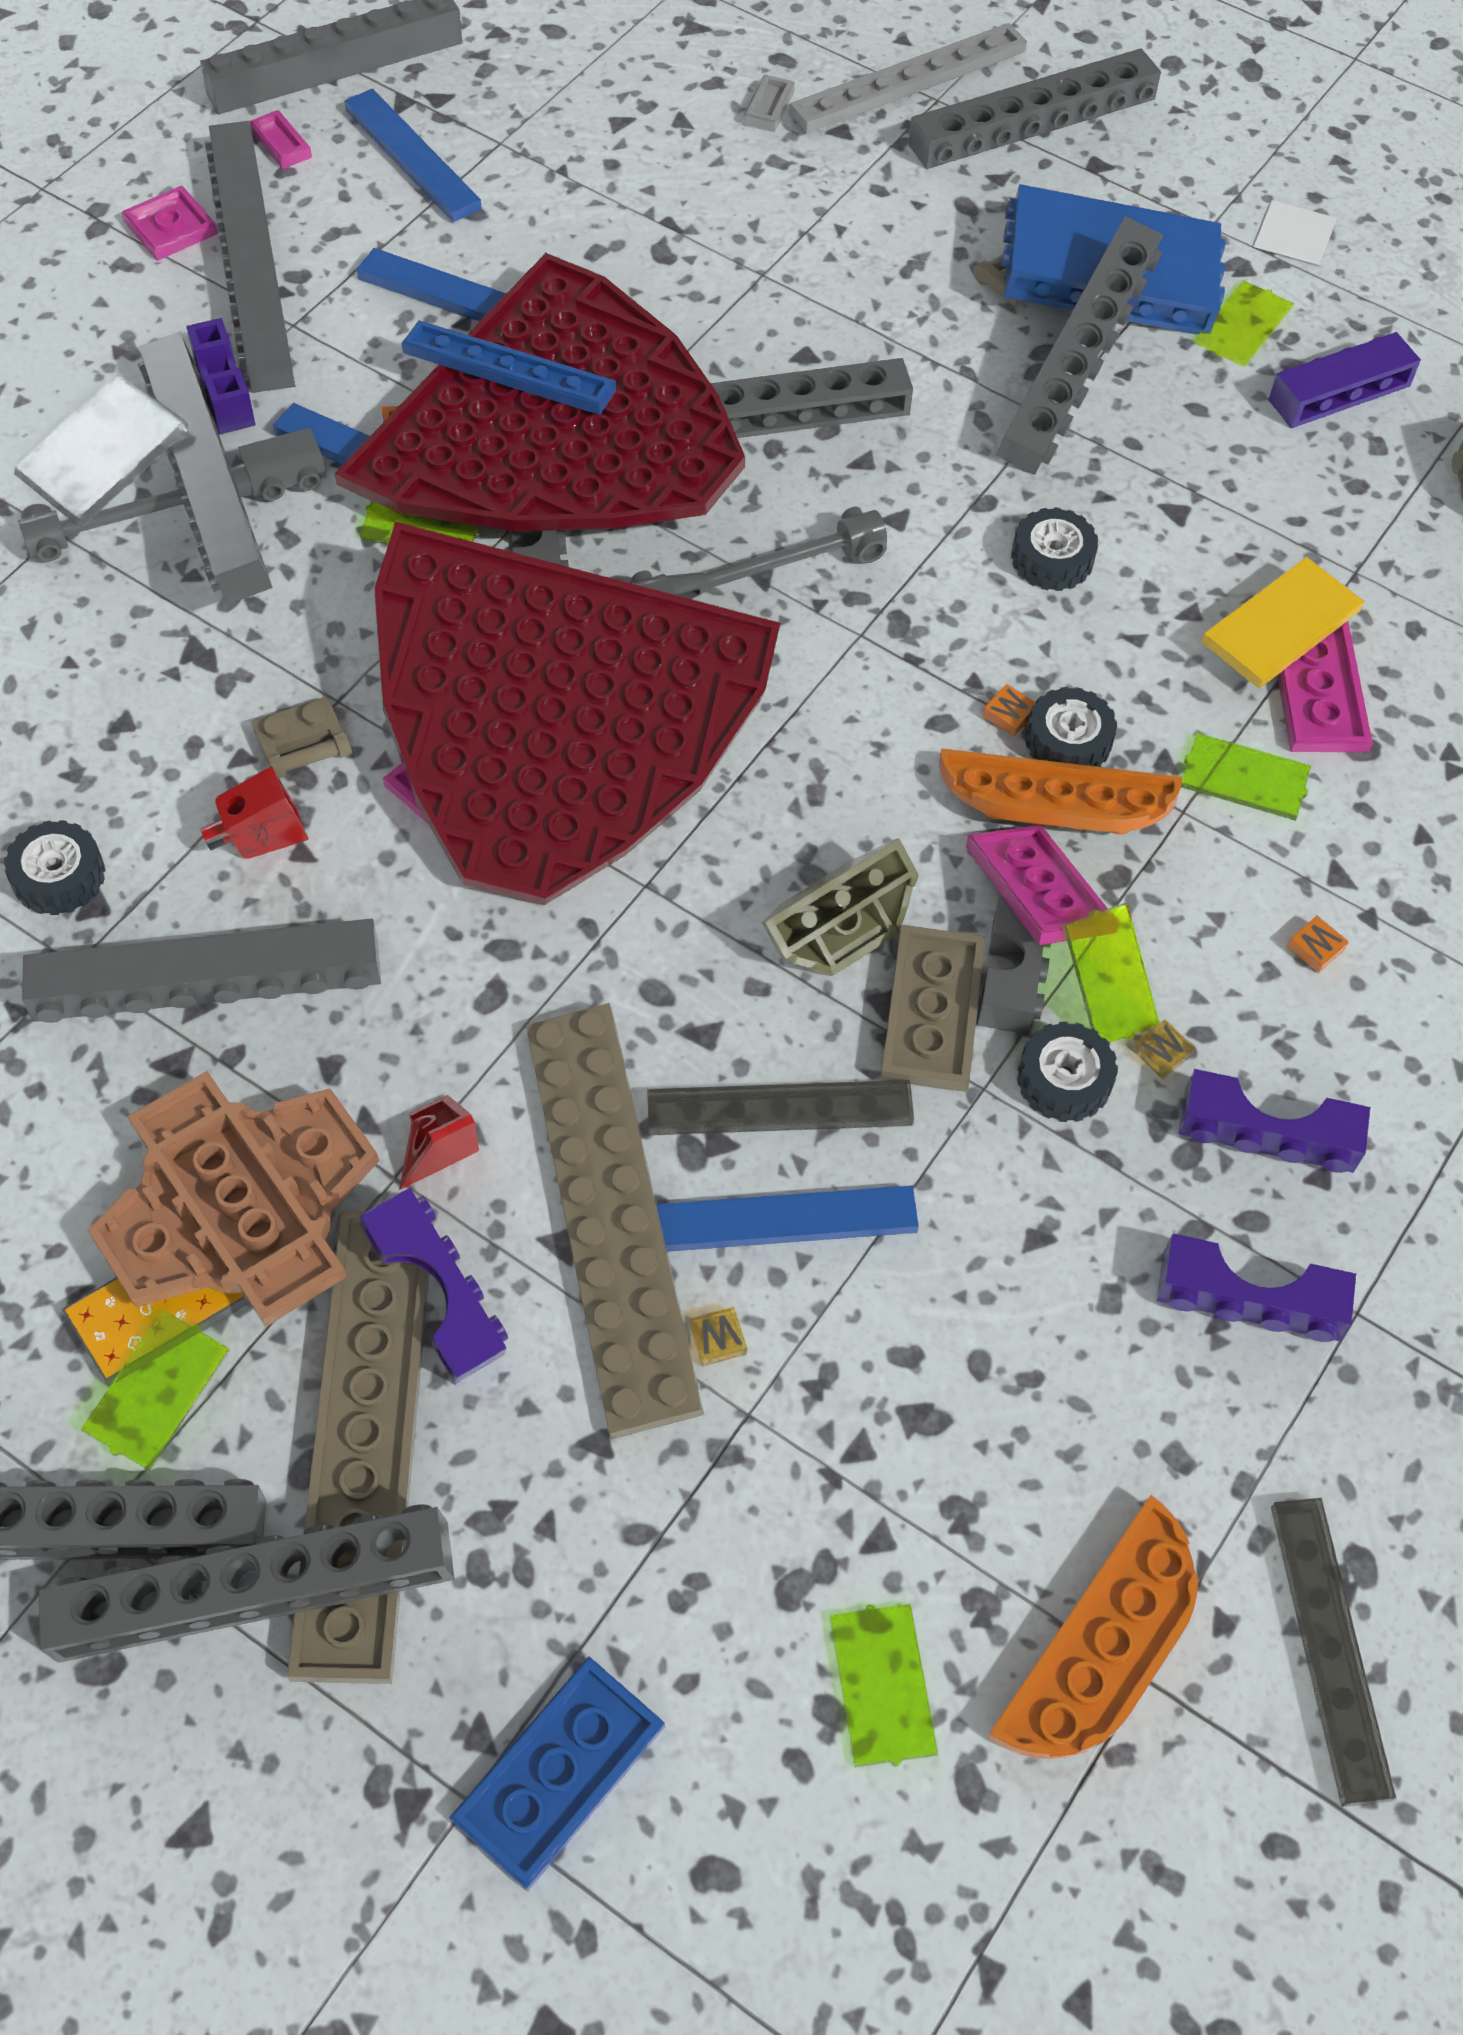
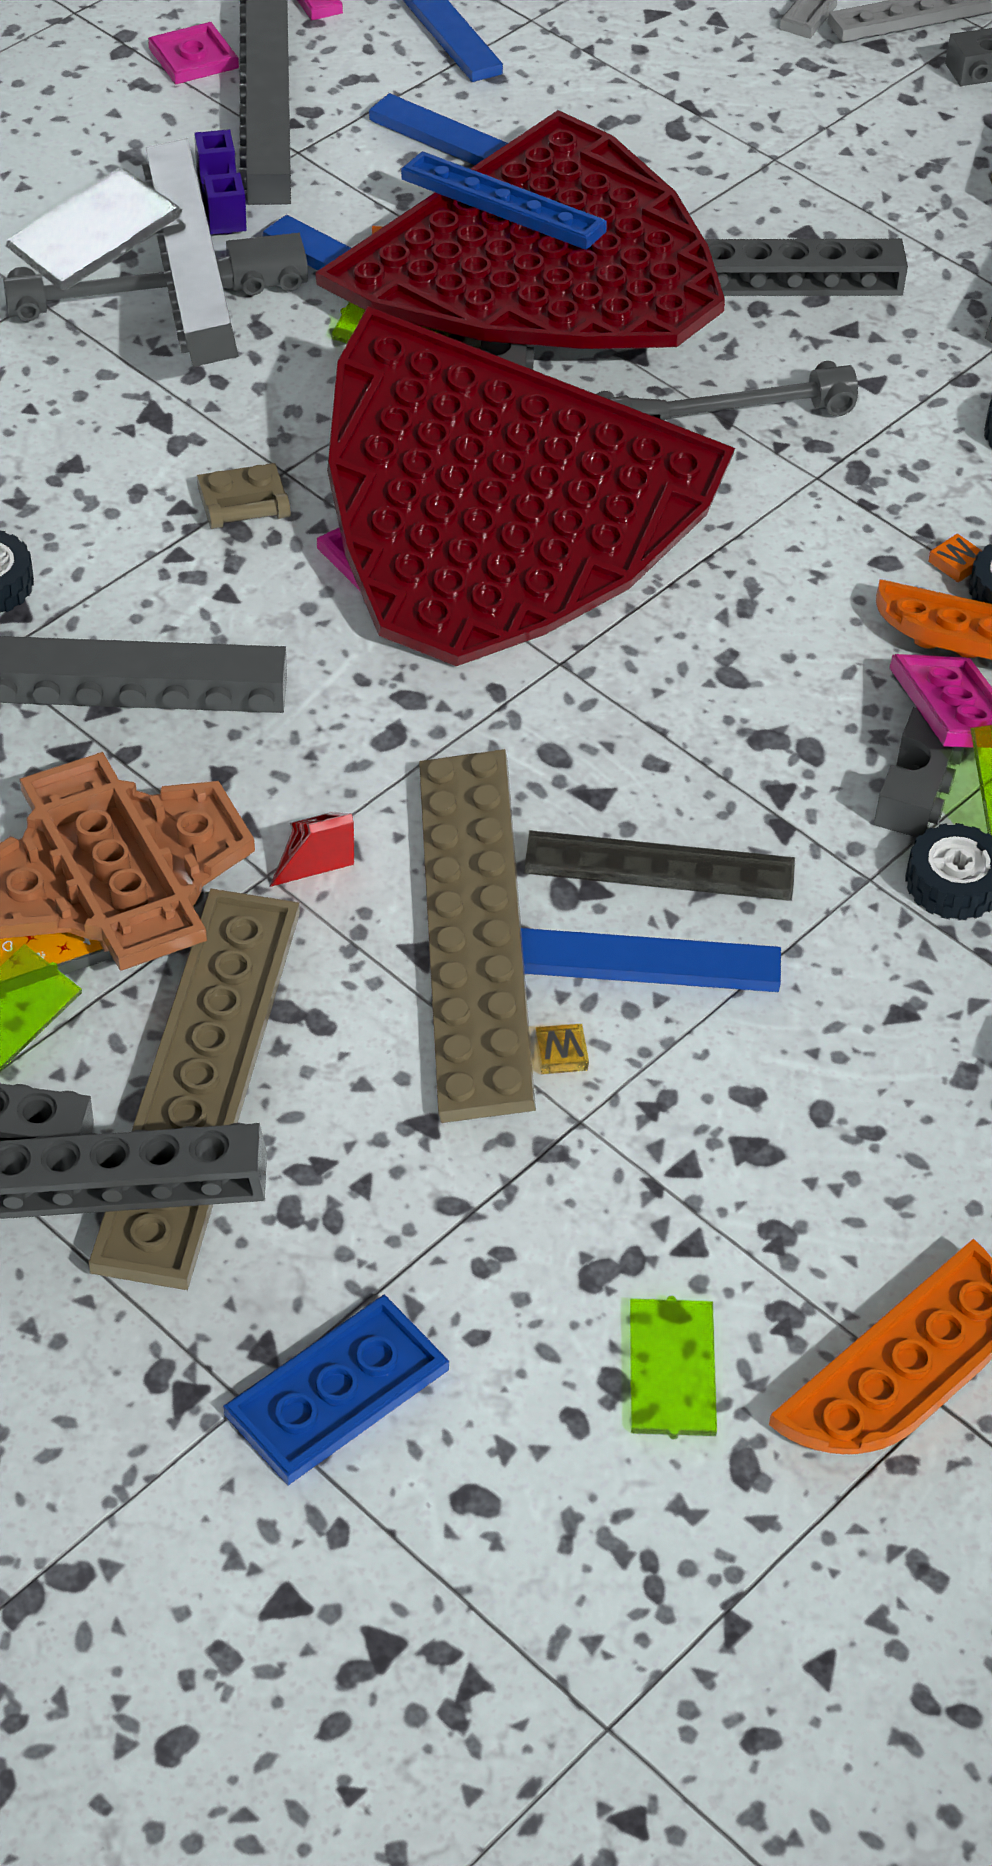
camera: 10 degrees right, 10 degrees down
(256, 817) = (187, 551): red torso -> none
(404, 1234) = (270, 908): dark purple arch -> none
(845, 911) = (756, 703): olive wedge -> none
(933, 1008) = (830, 799): dark tan plate -> none

